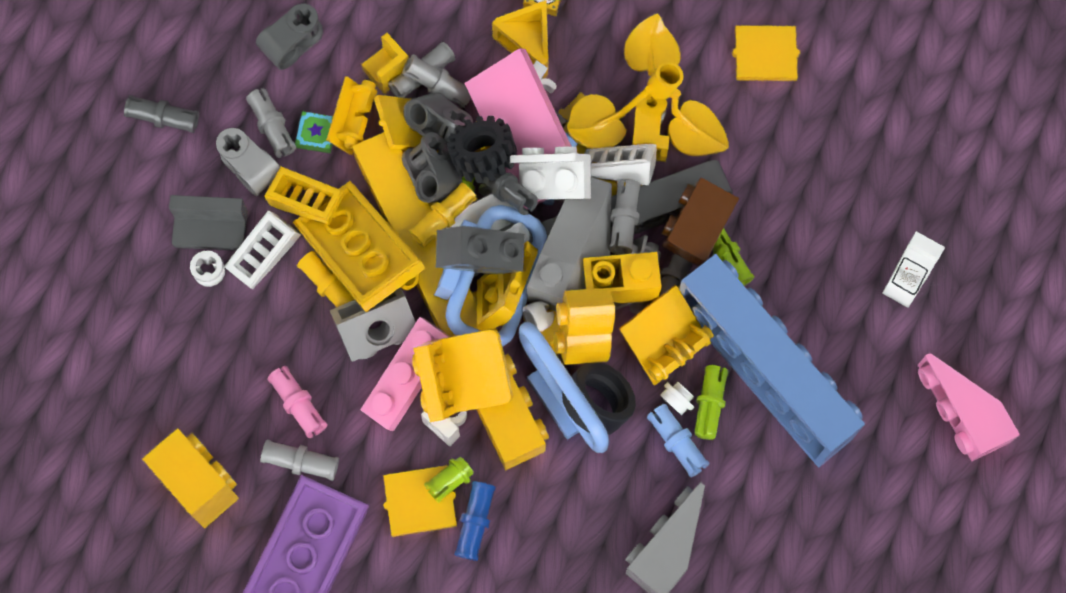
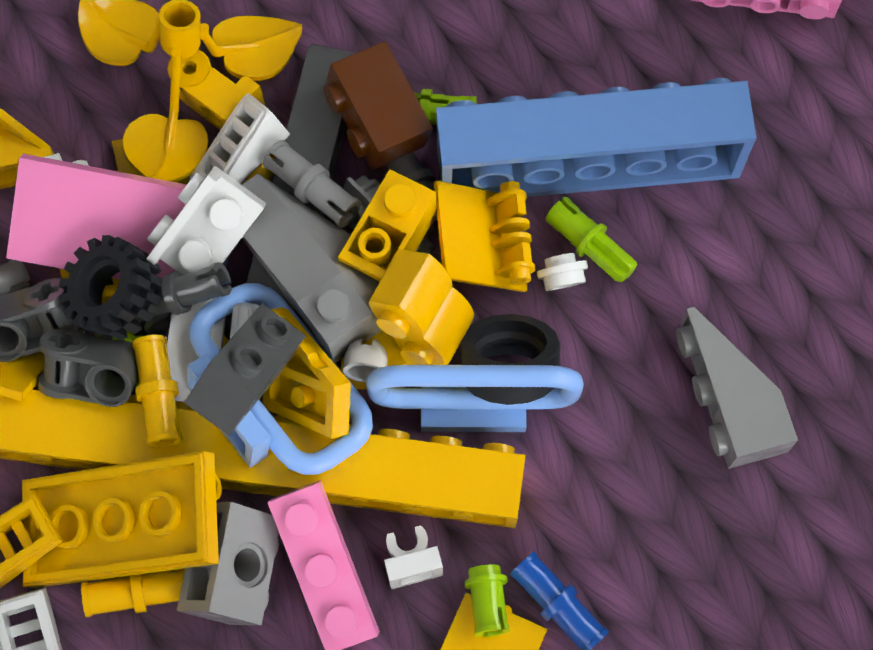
camera: 55 degrees left, 0 degrees up
(462, 373) = (380, 493): yellow bracket -> none
(678, 440) = (613, 305): light blue pin -> none

